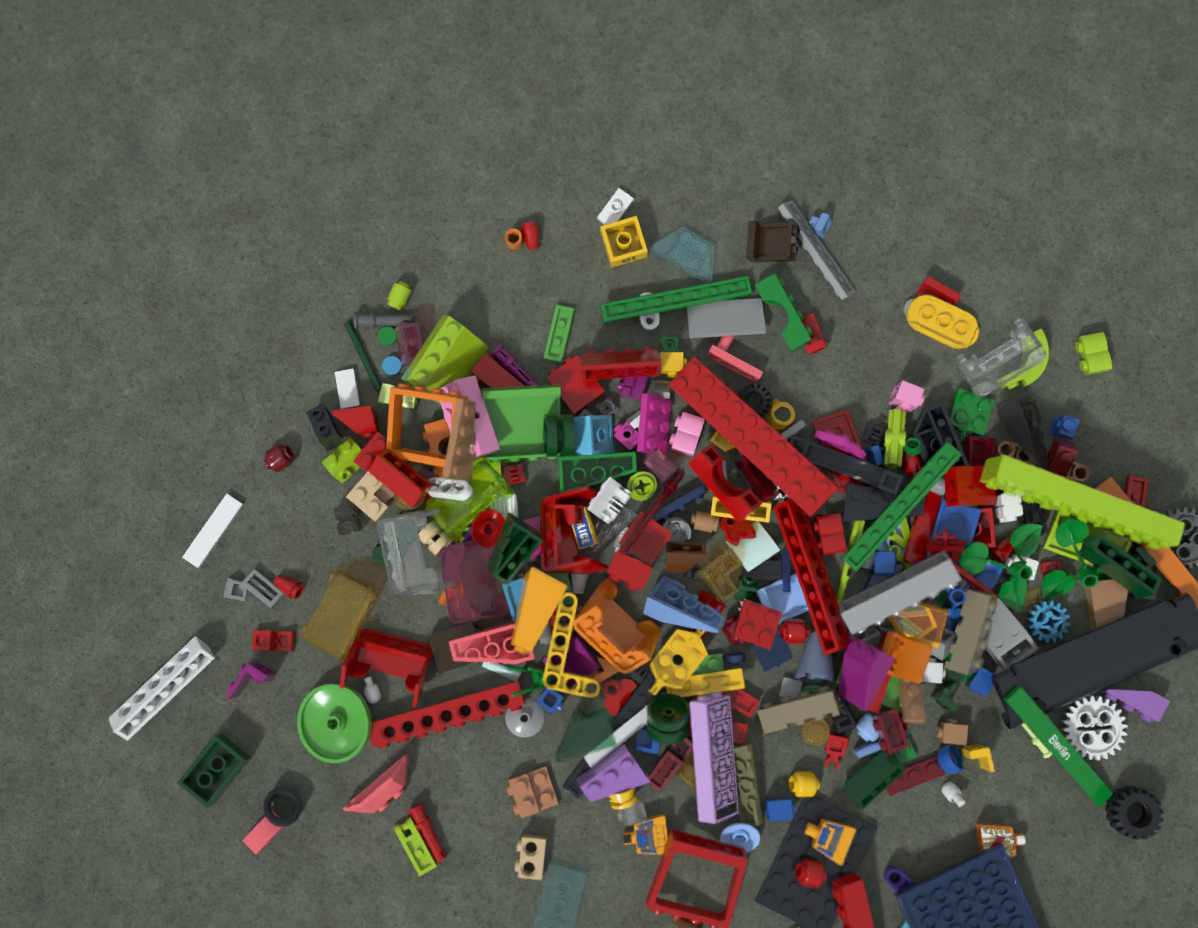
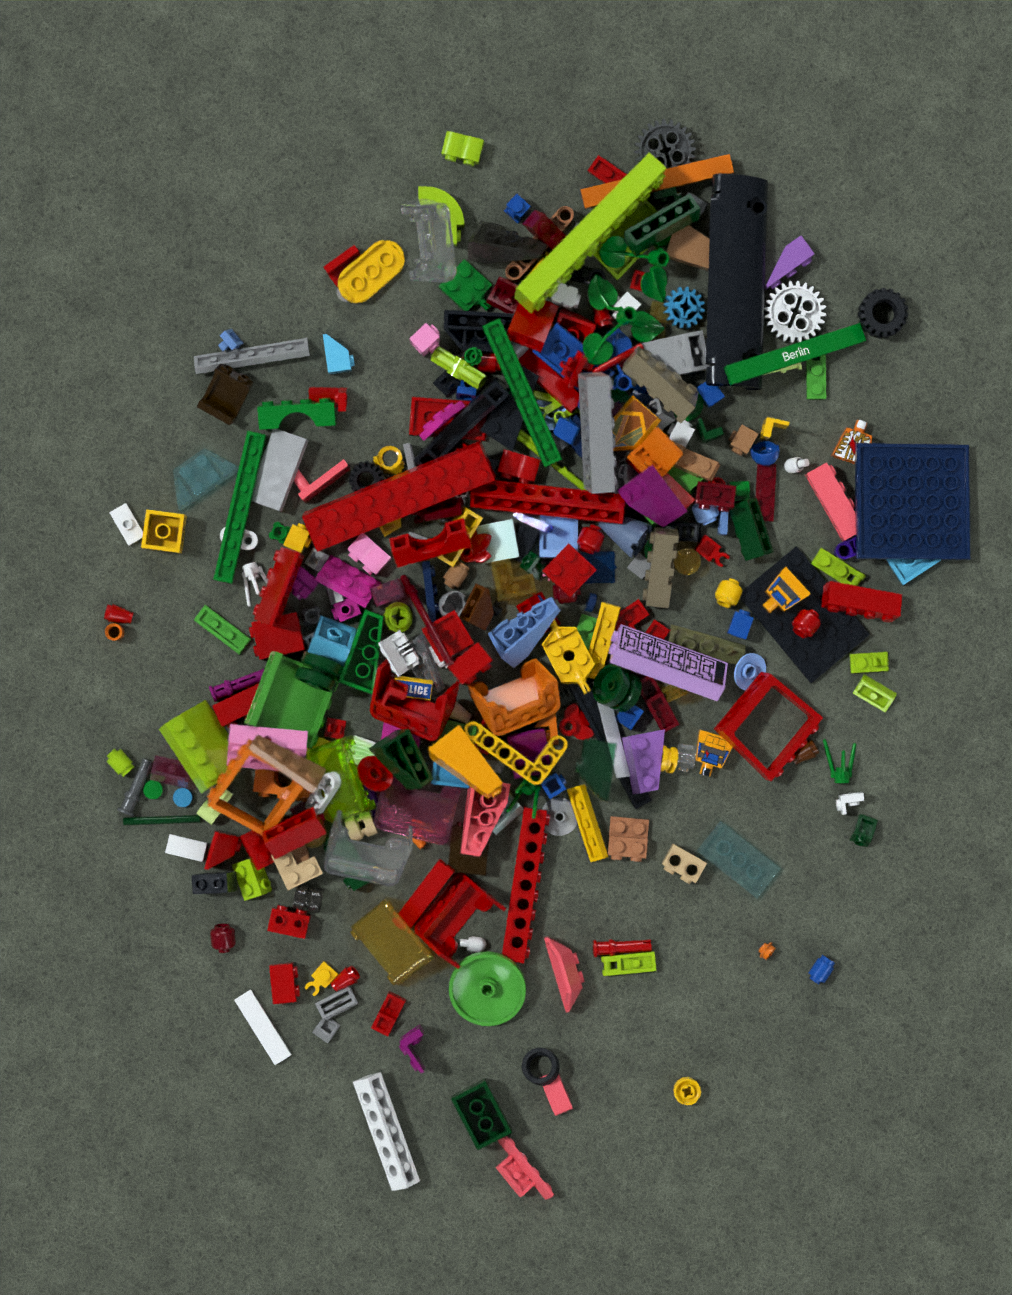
camera: 70 degrees left, 5 degrees up
(174, 831) = (519, 1172): none -> coral bracket
(260, 531) = (283, 982): none -> red brick
(282, 565) = (323, 976): none -> yellow plate
(318, 511) = (289, 922): none -> red brick
(399, 625) = (426, 892): none -> red tile
(529, 747) = (587, 823): none -> yellow plate
(621, 336) = (251, 572): none -> white plant
(852, 325) = (337, 356): none -> medium azure slope
(874, 876) = (836, 568): none -> lime plate
(937, 845) = (833, 500): none -> coral brick
(1041, 776) = (816, 378): none -> bright green plate

